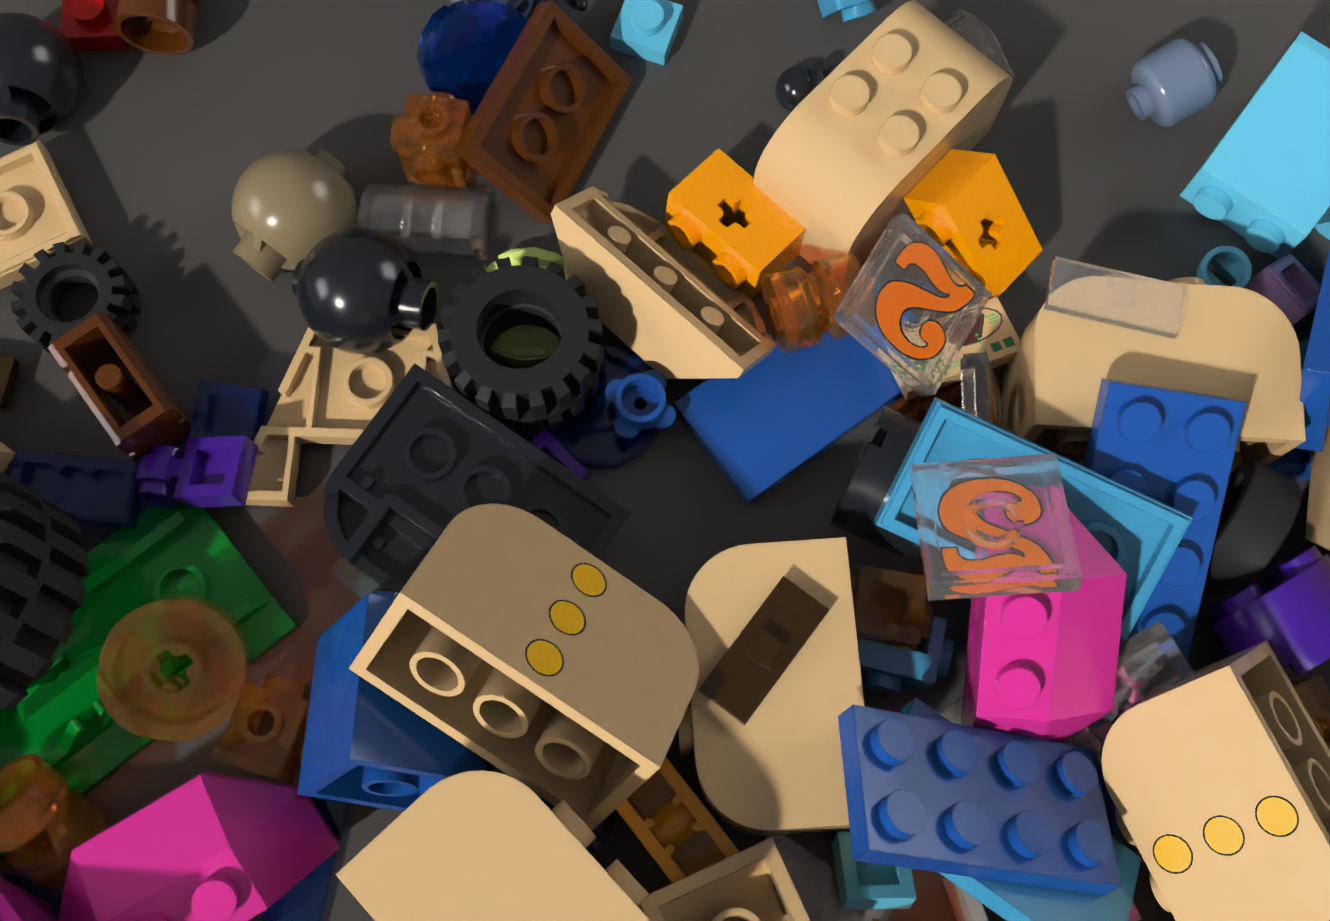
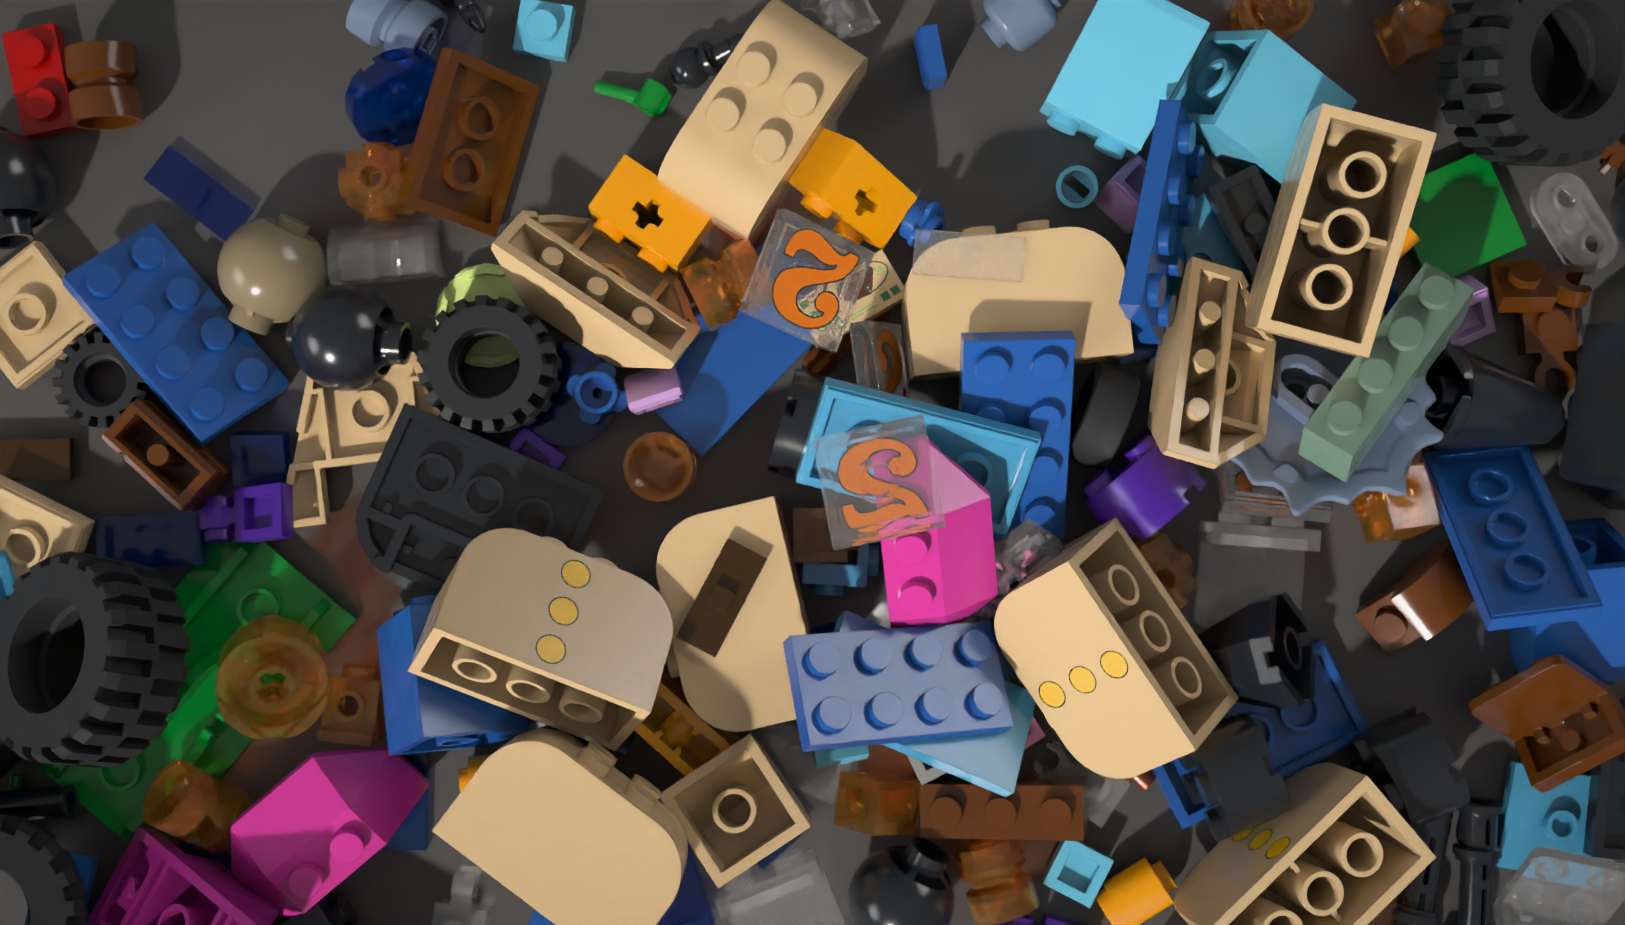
camera: 10 degrees left, 15 degrees up
(168, 262) = (175, 333): none -> blue plate
(228, 124) = (198, 193): none -> clear blue piece
(702, 498) = (660, 466): none -> clear orange wheel
(708, 412) = (653, 389): none -> lavender slope
(749, 113) = (650, 99): none -> green hand
(1033, 284) = (922, 216): none -> blue plate
(1069, 113) = (930, 57): none -> blue tile

